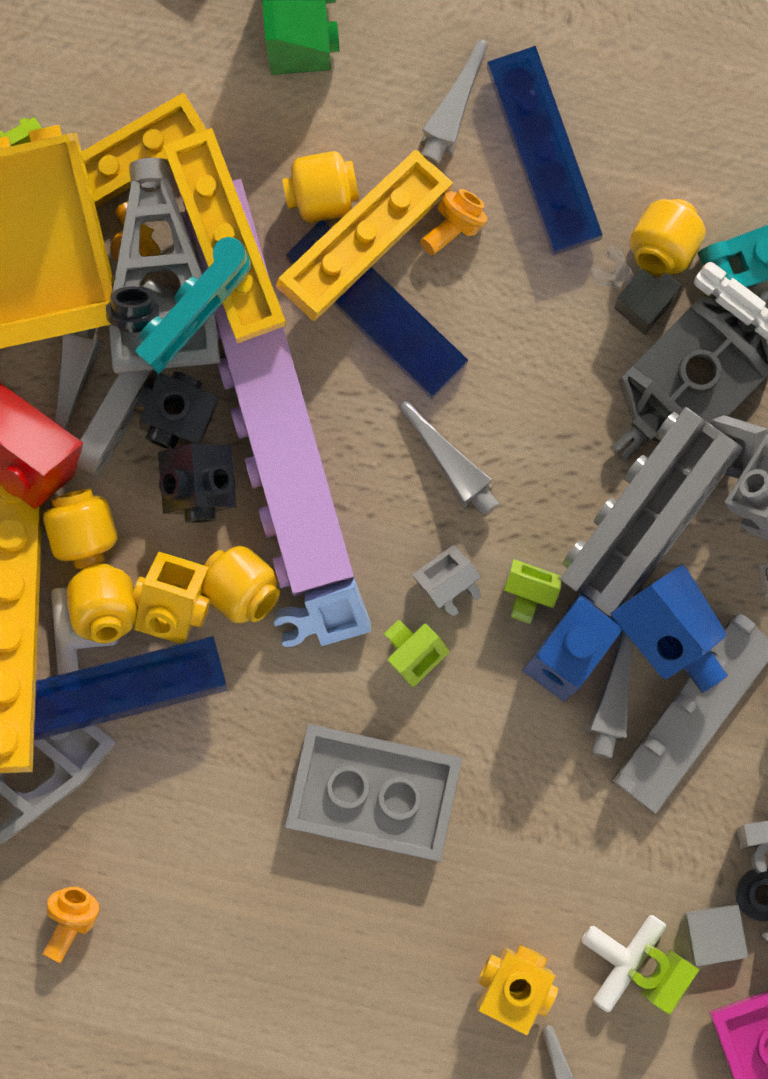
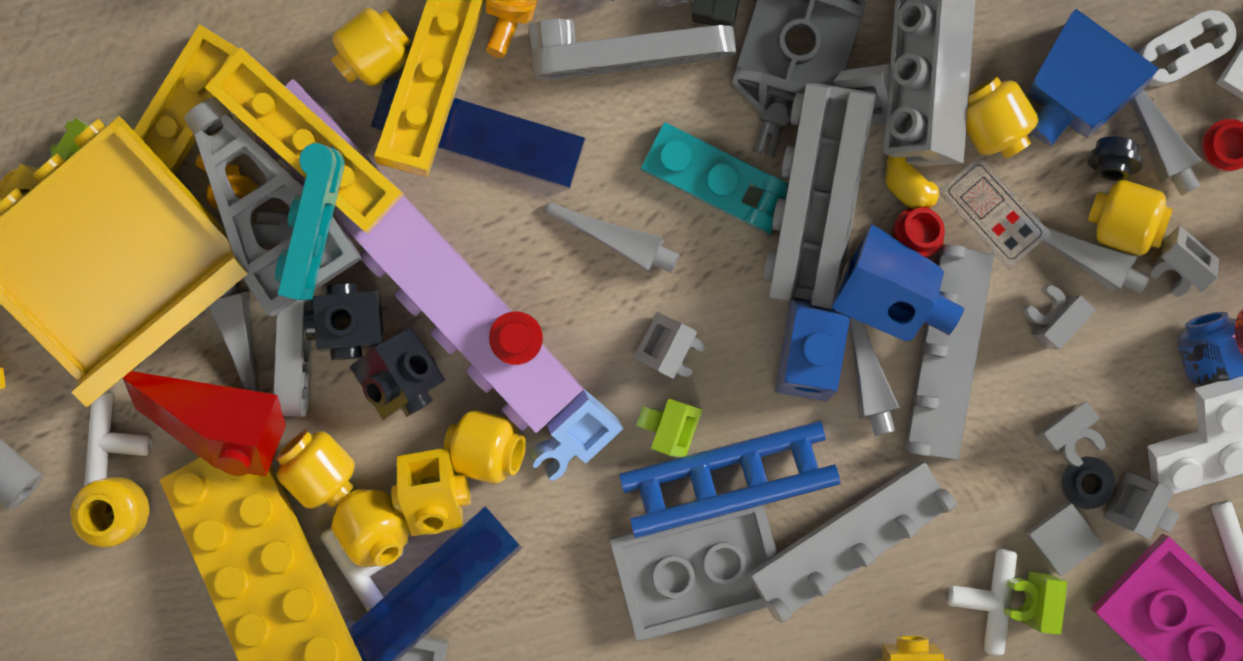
camera: 30 degrees left, 5 degrees up
(131, 309) = (255, 254): black plate -> none
(318, 499) = (515, 338): none -> red plate
(468, 710) = (758, 489): none -> blue bar
(483, 279) = (560, 56): none -> light grey beam
(522, 835) = (850, 540): none -> light grey hinge
(532, 587) = (747, 315): lime tile -> none
(563, 451) = (713, 177): none -> teal plate
(724, 591) = (920, 230): none -> red plate
(734, 546) = (909, 184): none -> yellow arm

